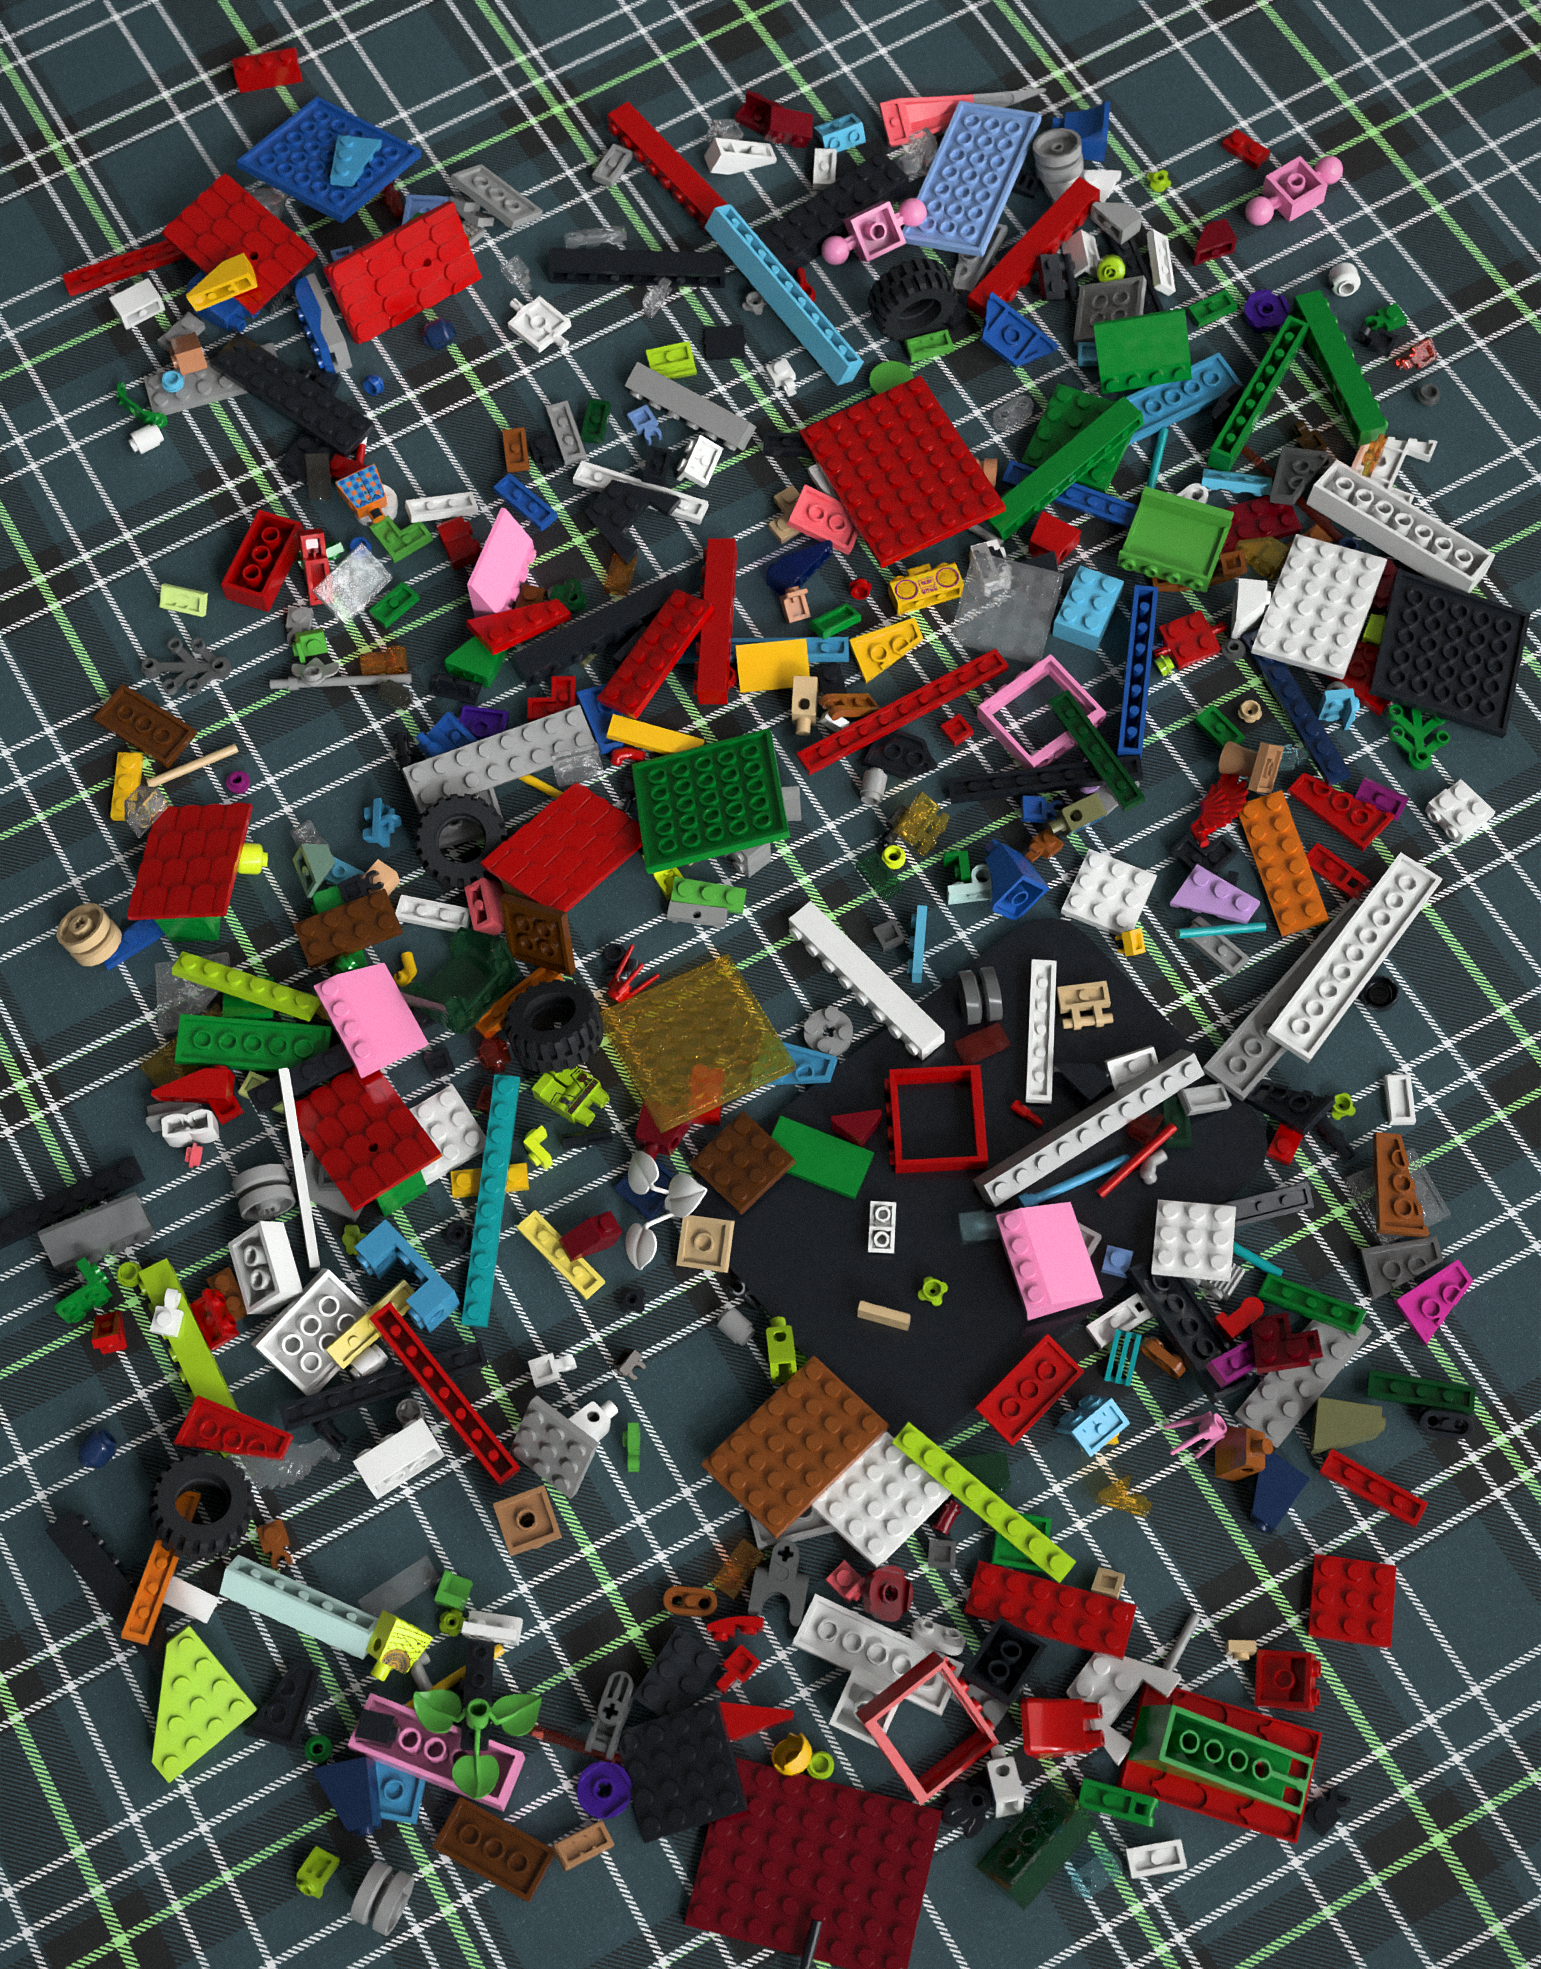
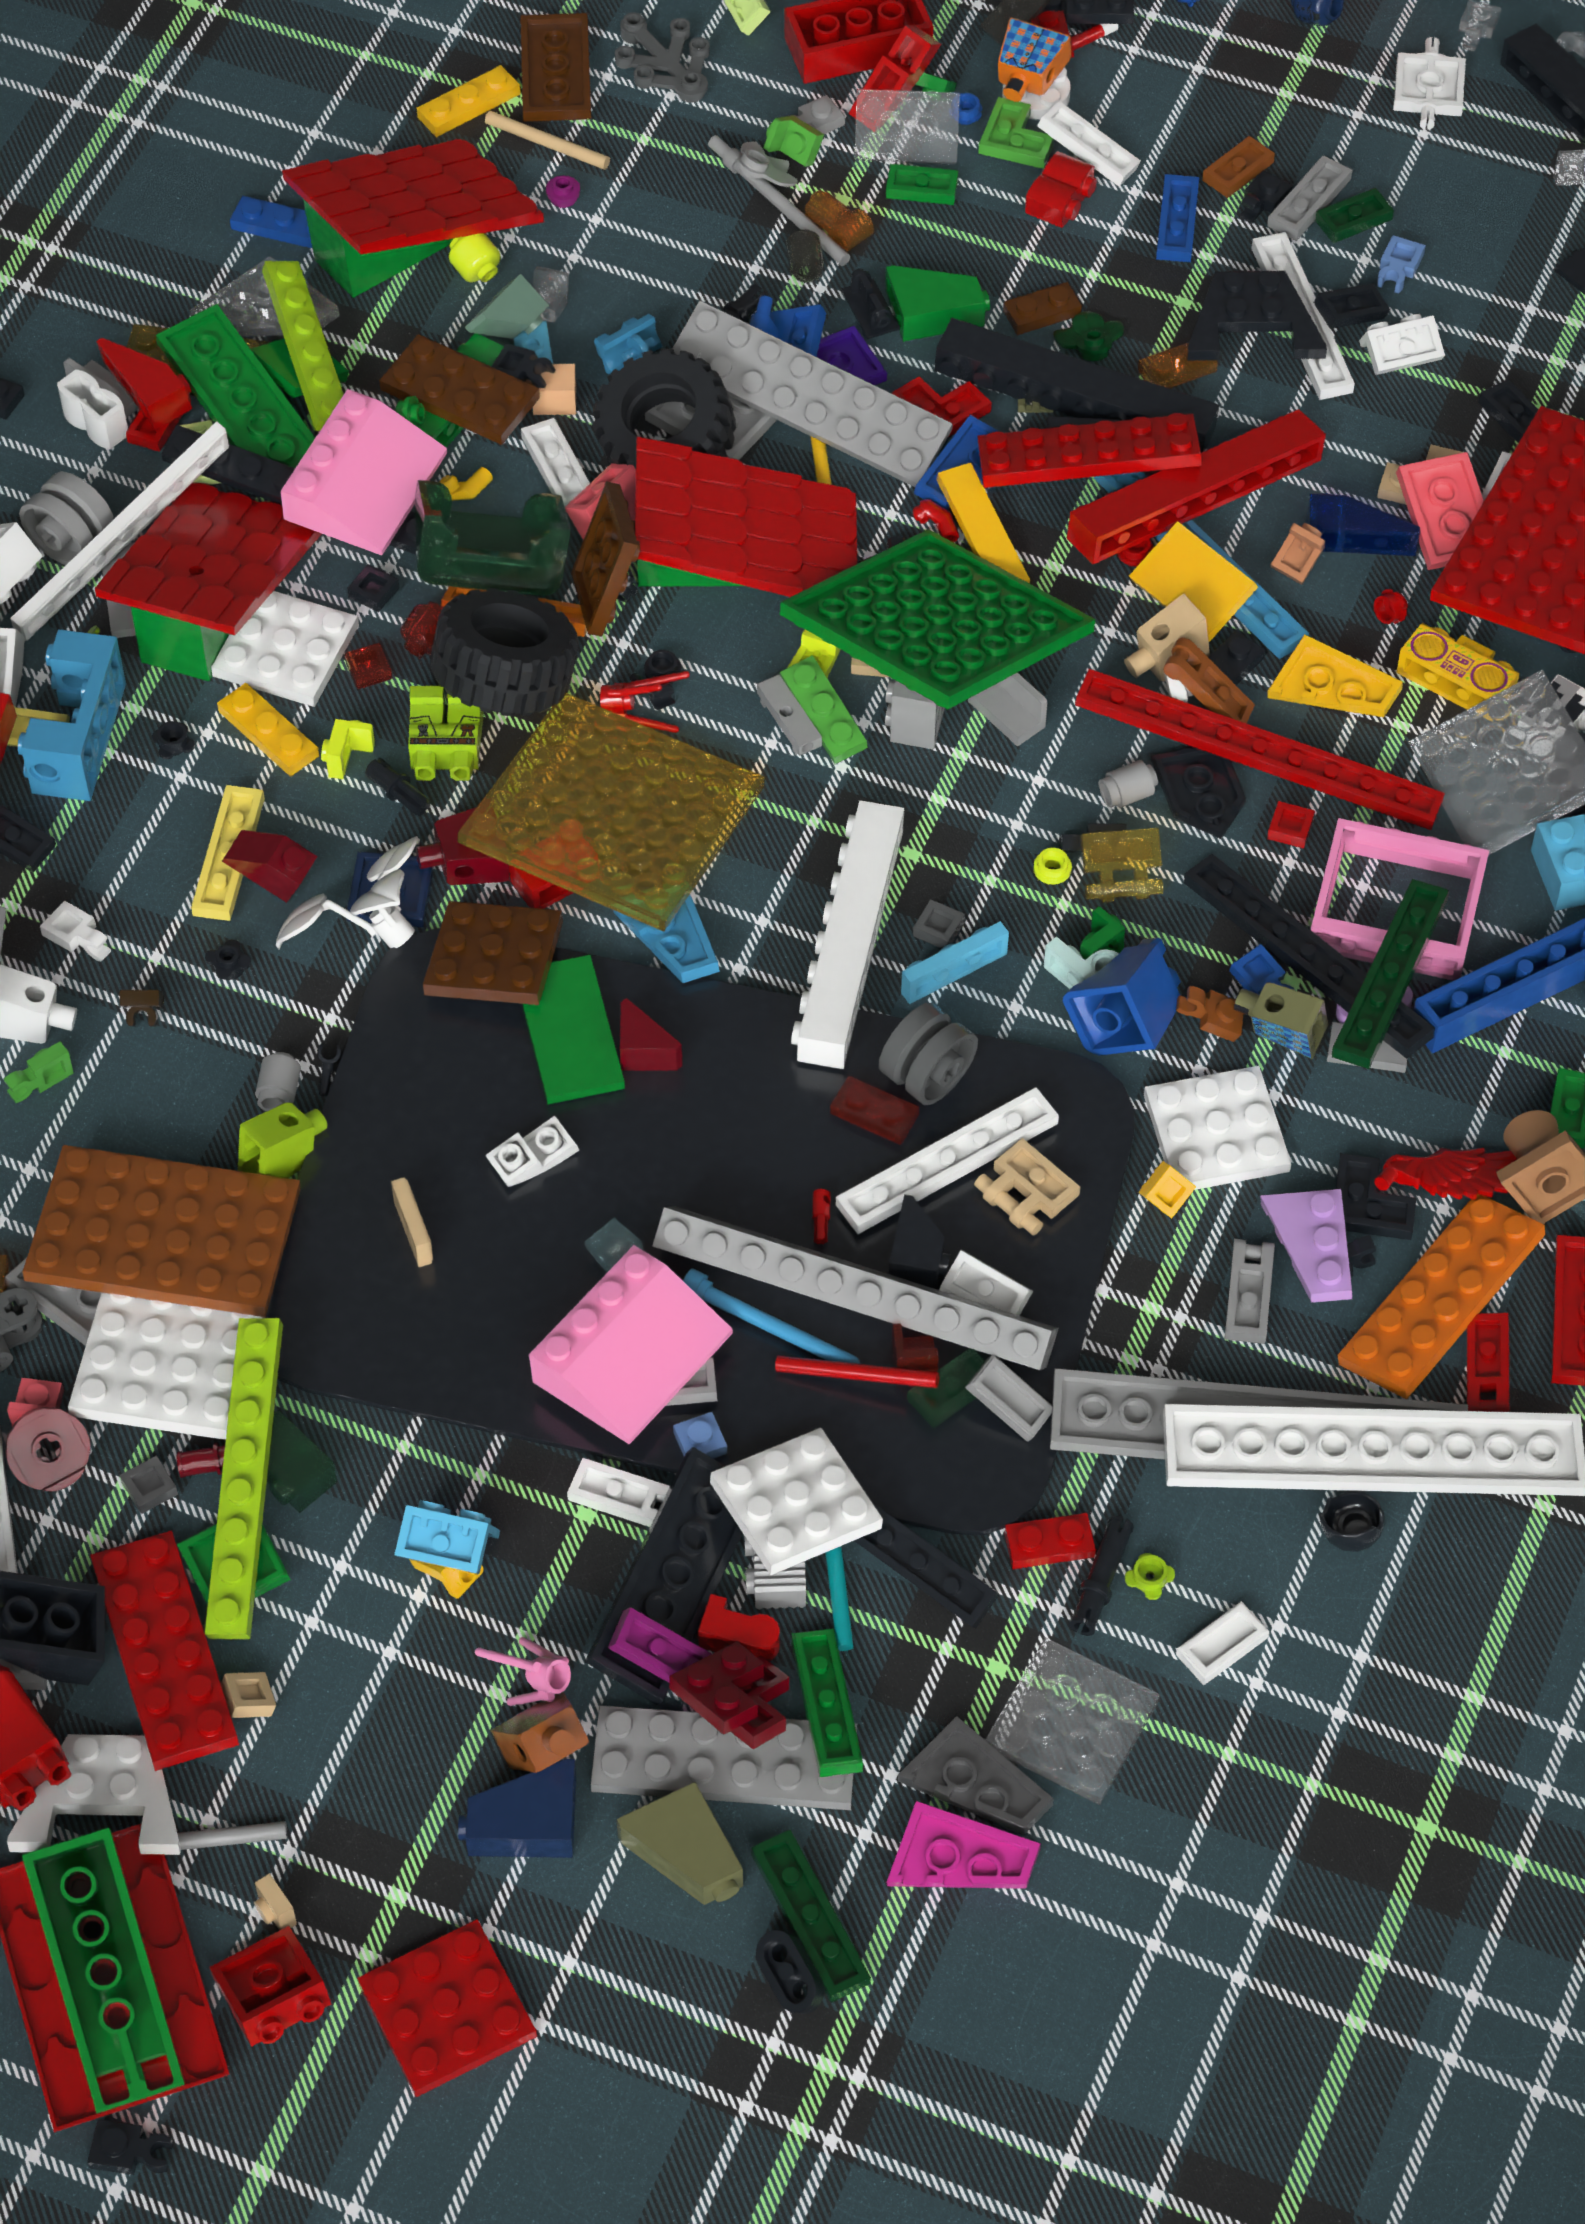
camera: 50 degrees right, 10 degrees down
(89, 934) = (248, 172): tan wheel -> none
(144, 808) = (443, 123): clear slope -> none
(194, 1155) = (67, 437): coral plate -> none
(491, 1201) = (237, 739): teal plate -> none
(501, 567) = (1053, 235): bright pink slope -> none
(514, 626) = (995, 299): red wing -> none
(577, 764) = (876, 474): clear bracket -> none
(672, 360) = (1510, 235): lime plate -> none
(689, 406) = (1464, 287): light grey brick -> none
(705, 1243) = (357, 981): tan plate -> none
(828, 1018) = (757, 926): light grey plate -> none
(835, 621) = (1318, 608): green tile -> none
(879, 876) = (1010, 867): clear green plate -> none
(929, 1284) = (490, 1248): lime plate -> none
(937, 1075) = (760, 1165): red window -> none
(938, 1637) = (34, 1542): white plate -> none
(1029, 1390) = (443, 1445): red plate -> none
(1115, 1497) = (380, 1636): clear yellow slope -> none
(1117, 1379) = (568, 1520): teal tile -> none
(1148, 1166) = (866, 1393): light grey arm -> none
(1170, 1363) = (613, 1555): dark orange plate -> none
(1220, 930) = (1273, 1275): teal bar -> none
(1291, 1108) = (1088, 1507): black wing -> none
(1373, 1488) = (625, 1937): red plate -> none
(1395, 1190) = (1068, 1704): dark orange wing -> none

